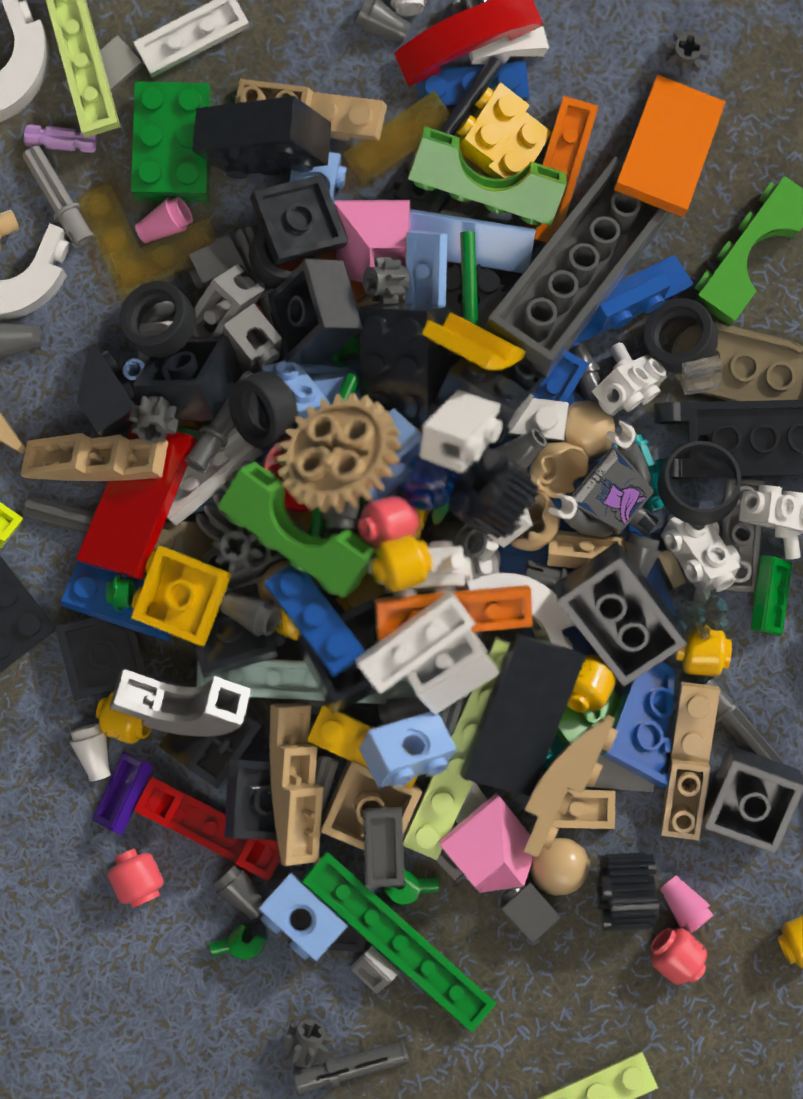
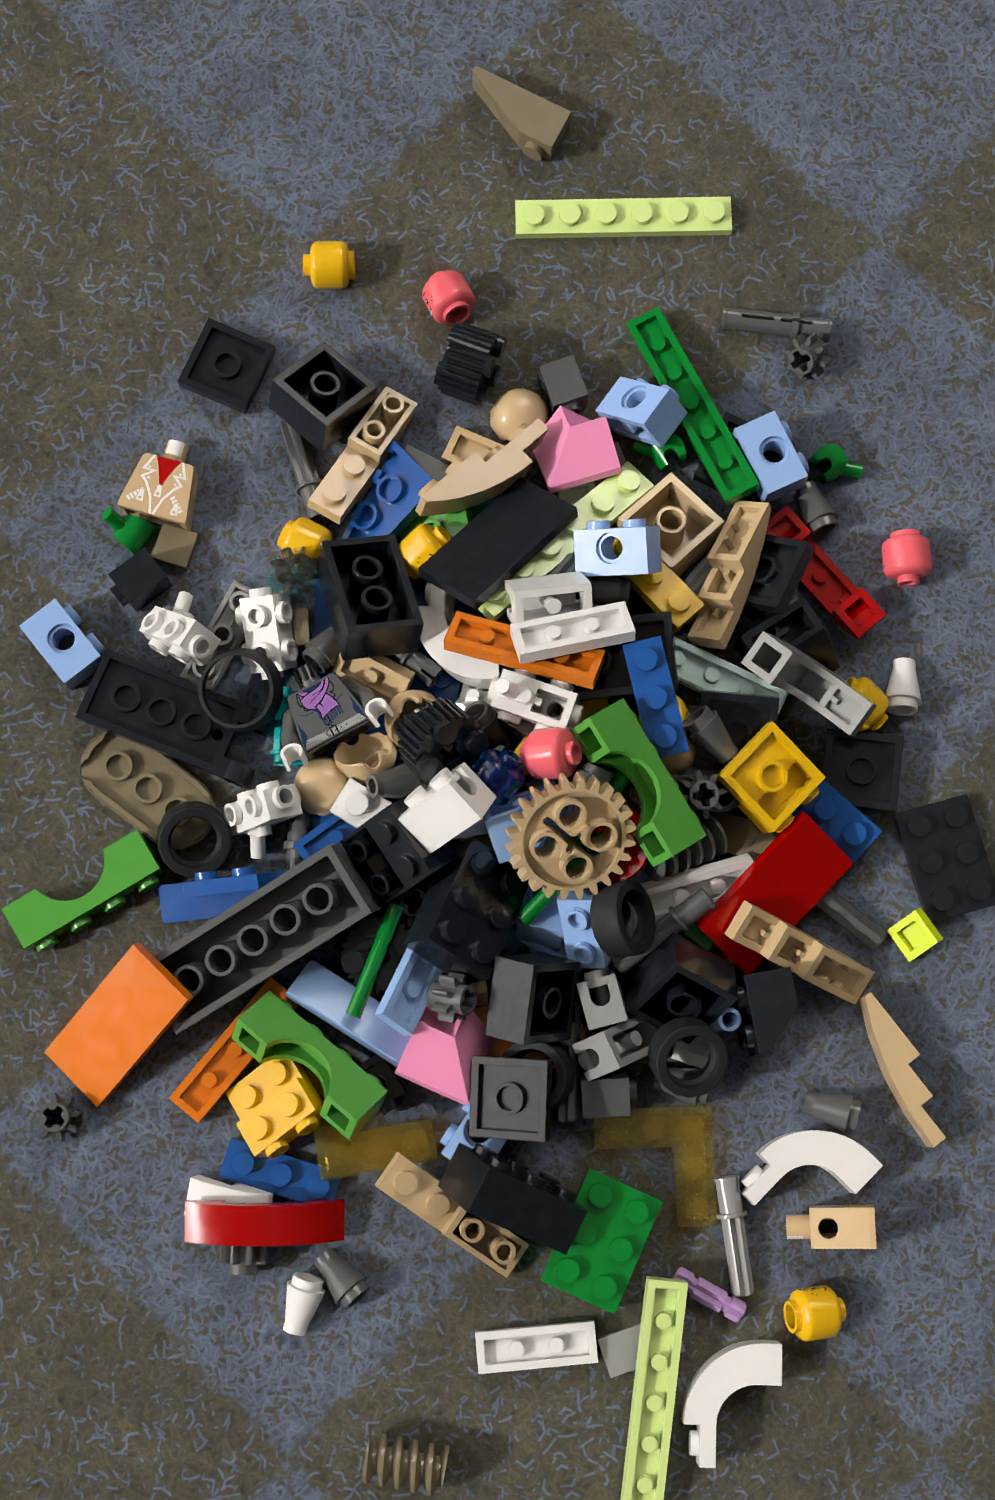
camera: 155 degrees left, 5 degrees down
(120, 592) = (824, 809): green plate -> none
(122, 792) = (889, 638): dark purple tile -> none
(154, 419) = (731, 954): dark grey gear -> none
(165, 220) = (638, 1163): bright pink cone -> none
(374, 970) = (722, 393): light grey tile -> none
(383, 847) = (672, 484): dark grey tile -> none
(402, 563) = (555, 704): yellow head -> none
(443, 913) = (642, 410): none -> light blue brick
(473, 93) = (289, 1156): black bar -> none
(474, 343) = (396, 891): yellow slope -> none
(686, 905) = (421, 336): bright pink cone -> none
(701, 375) = (192, 791): clear tile -> none
(771, 595) = (222, 569): green plate -> none

